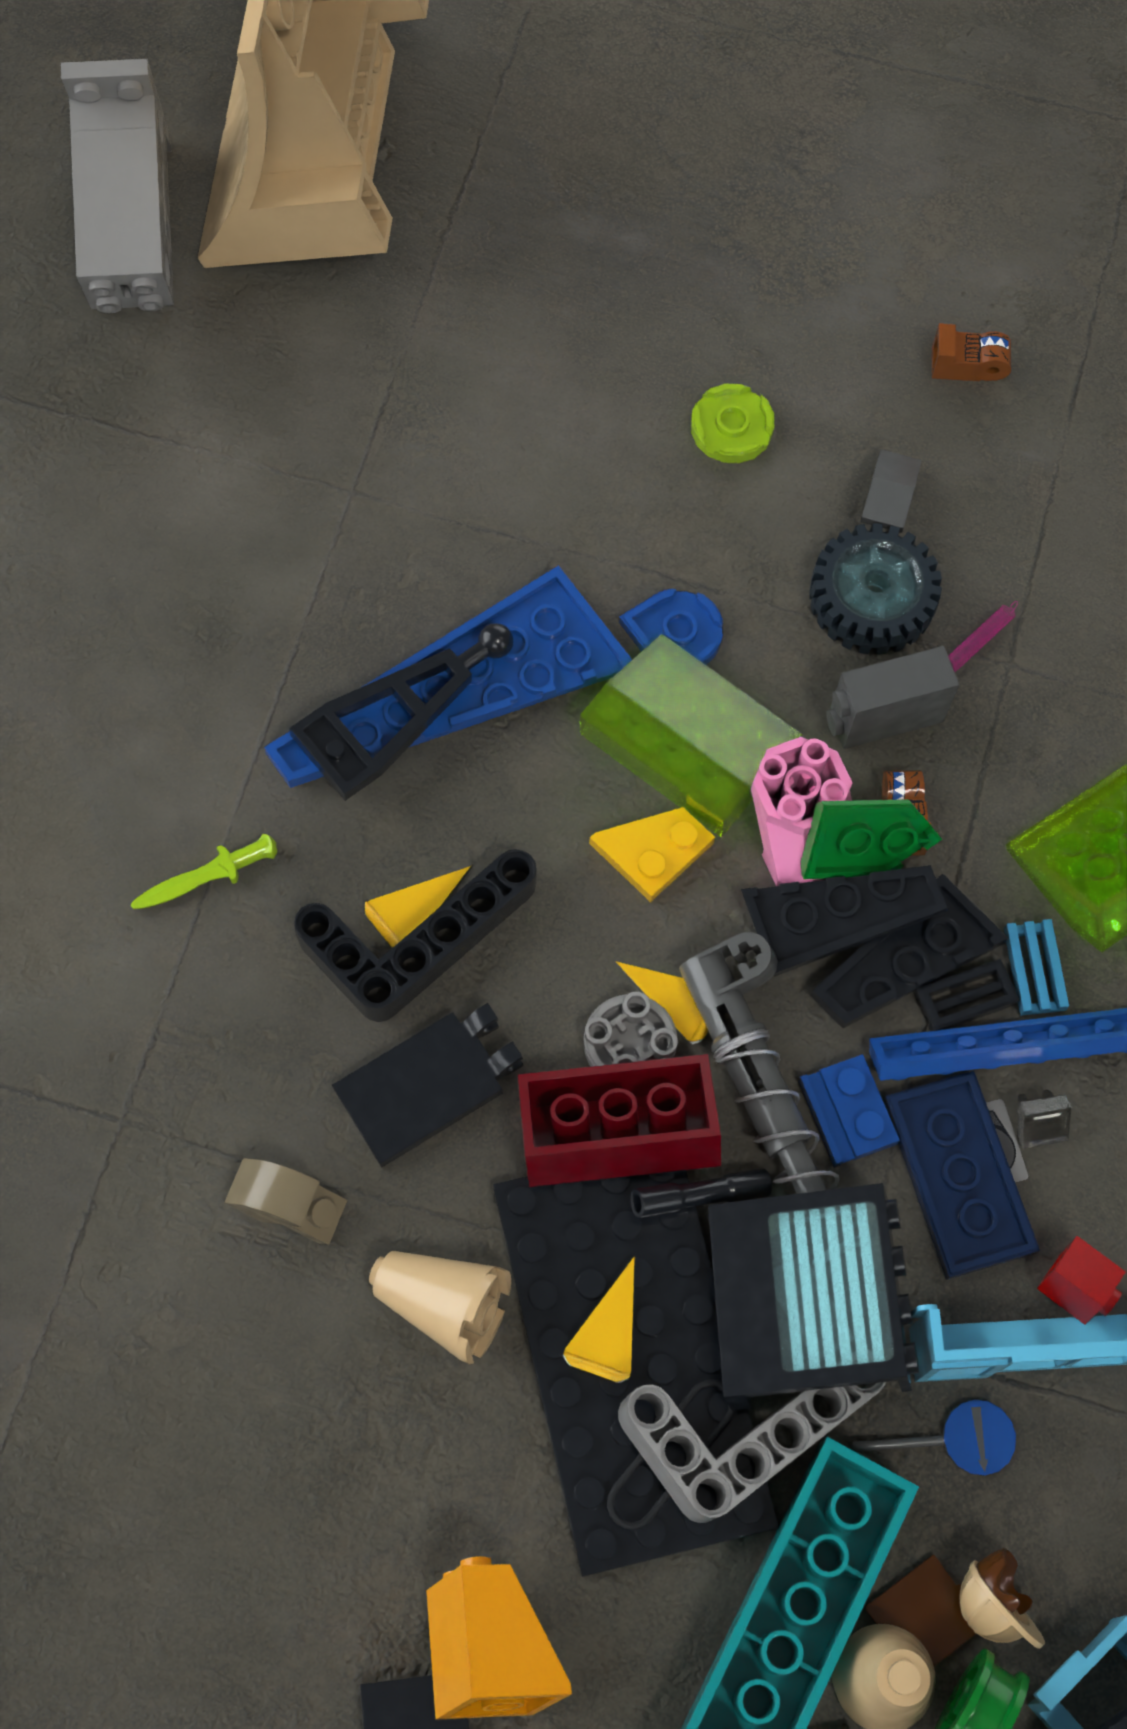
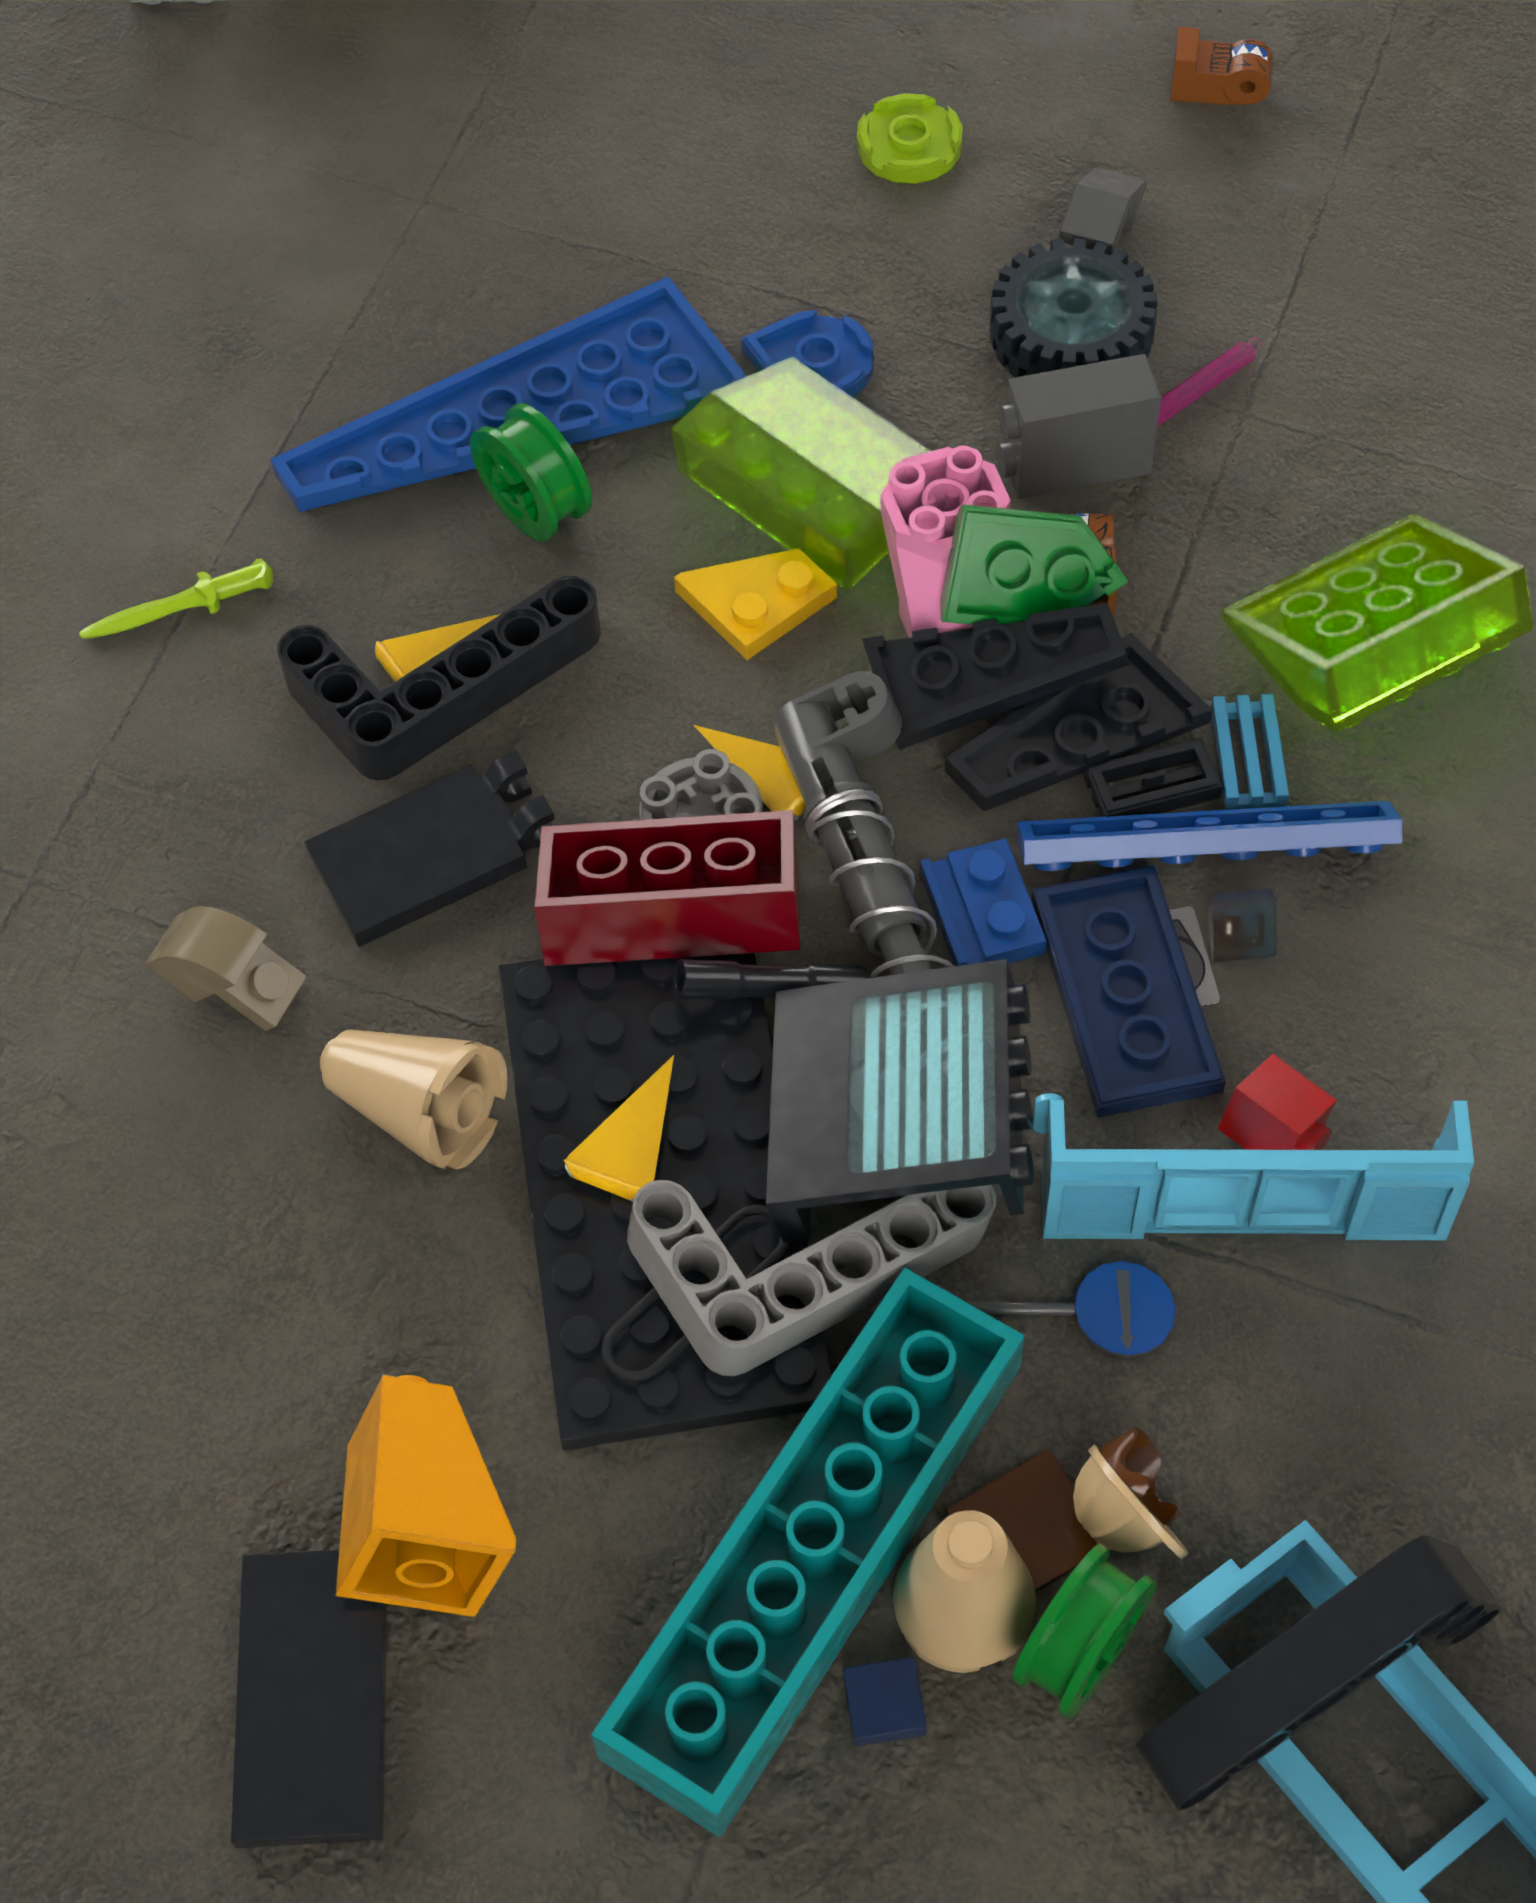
camera: 10 degrees right, 10 degrees down
(341, 755) = (369, 471): black plate -> none
(474, 758) = (531, 472): none -> green wheel

